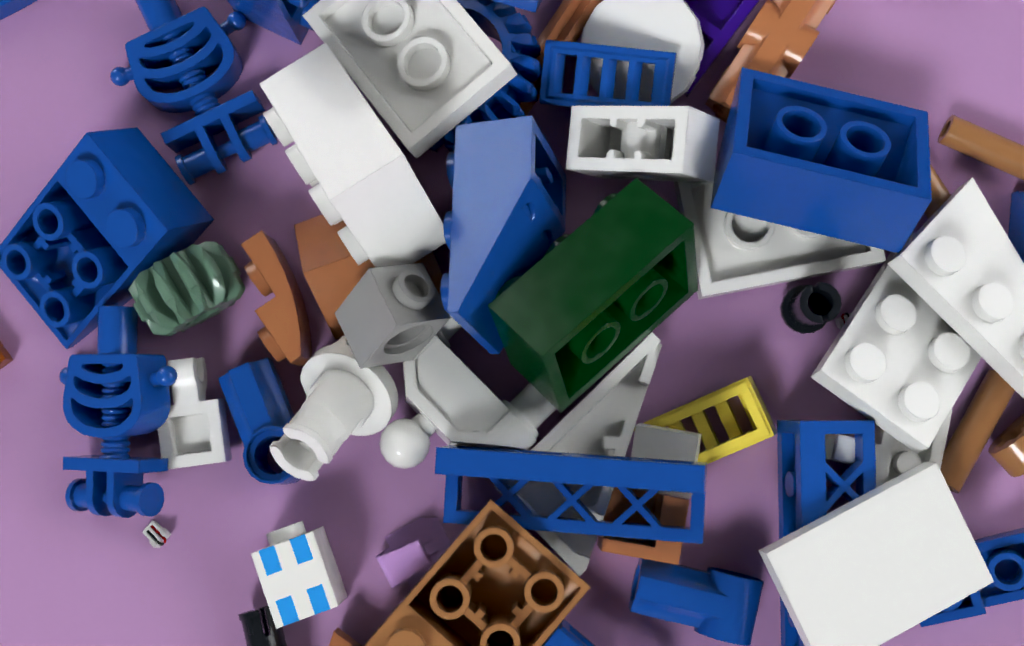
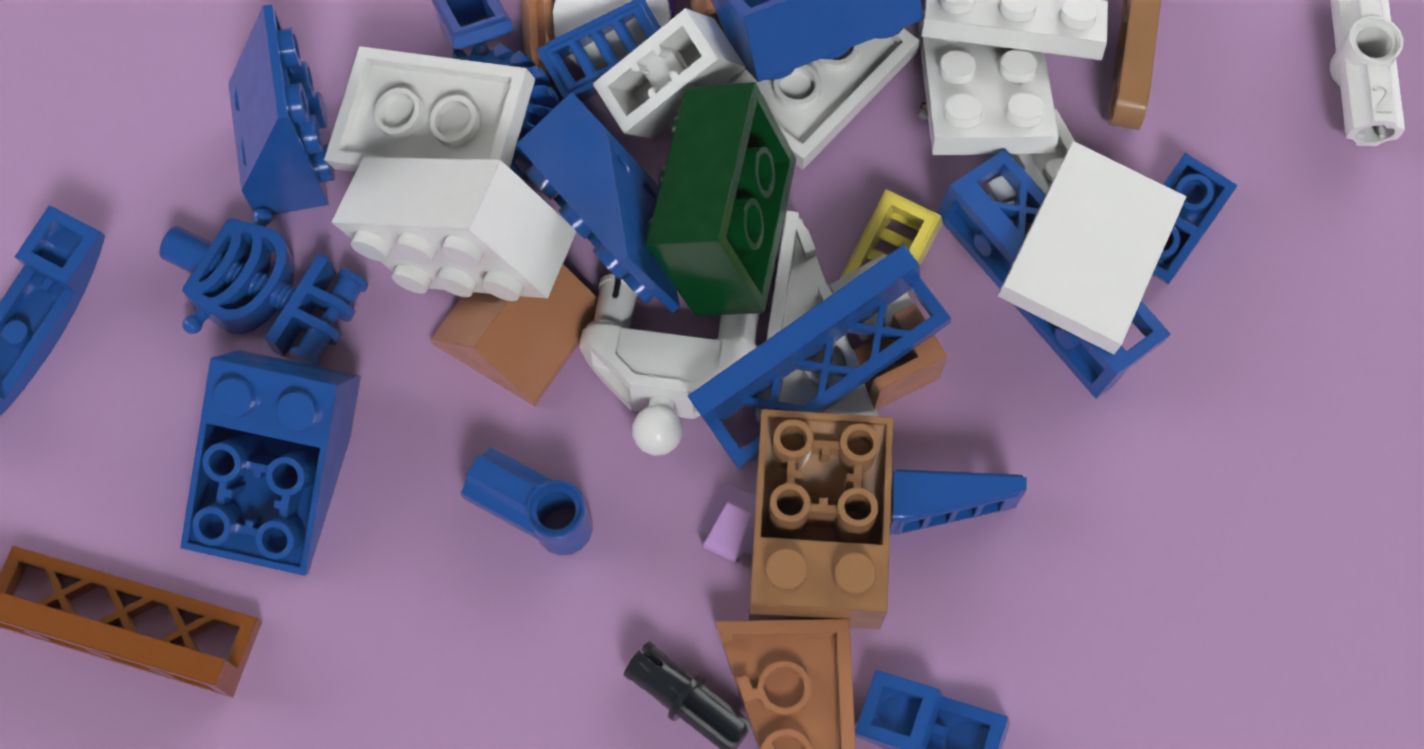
camera: 40 degrees left, 15 degrees down
(116, 382) = (387, 546): blue torso -> none
(156, 534) = (500, 670): white piece -> none
(186, 288) = (381, 436): sand green gear -> none
(195, 426) = (465, 550): white plate -> none
(284, 316) = (478, 406): nougat slope -> none
(298, 574) = (649, 597): white brick -> none
(337, 404) = (580, 429): white piece -> none
(391, 314) = (573, 317): light grey brick -> none
(713, 601) = (998, 375): blue piece -> none
(797, 314) = (890, 115): black pin -> none
(975, 429) = (1084, 106): medium nougat piece -> none

